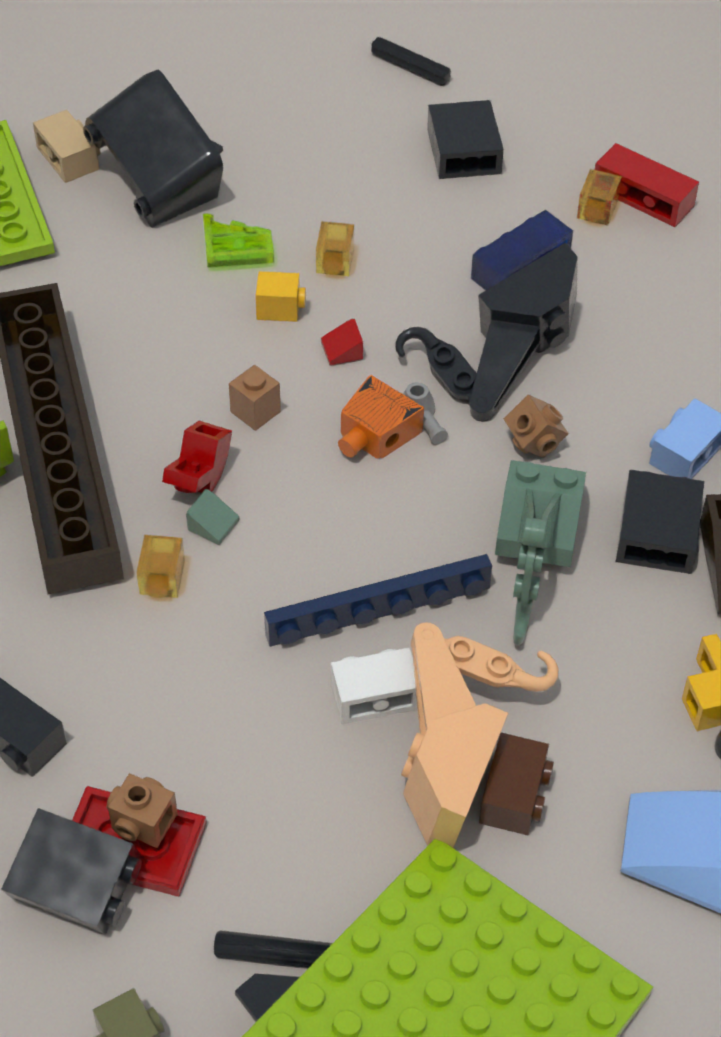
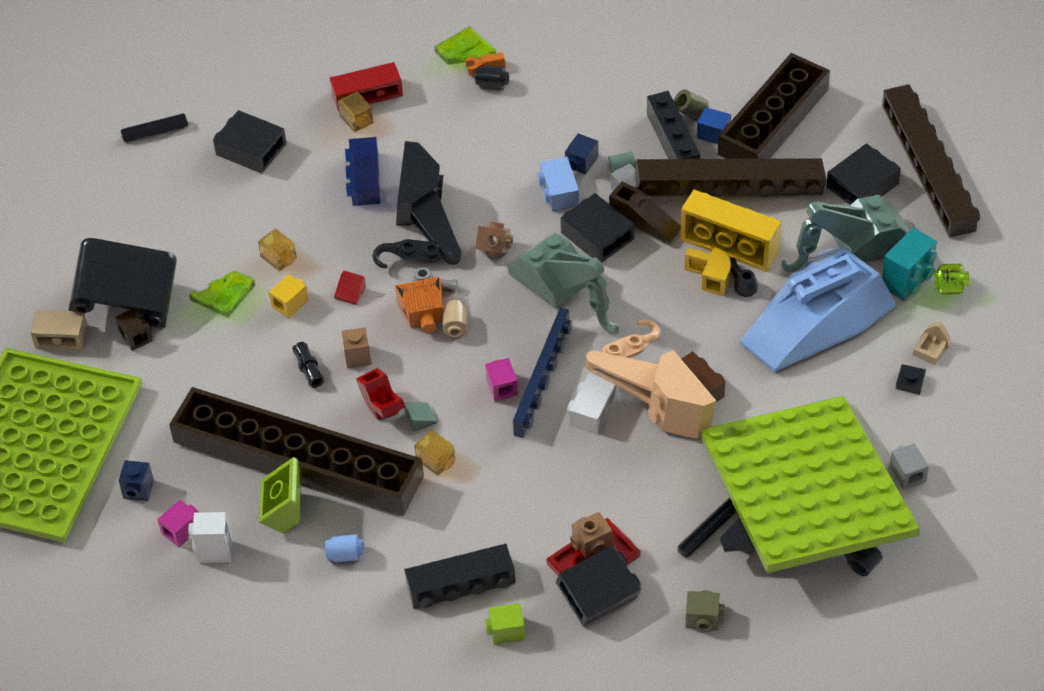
camera: 50 degrees left, 0 degrees up
(115, 200) = (134, 329): none -> dark brown brick
(198, 372) = (308, 364): none -> black pin
(330, 564) = (501, 379): none -> dark pink brick
(383, 464) = (454, 318): none -> tan brick

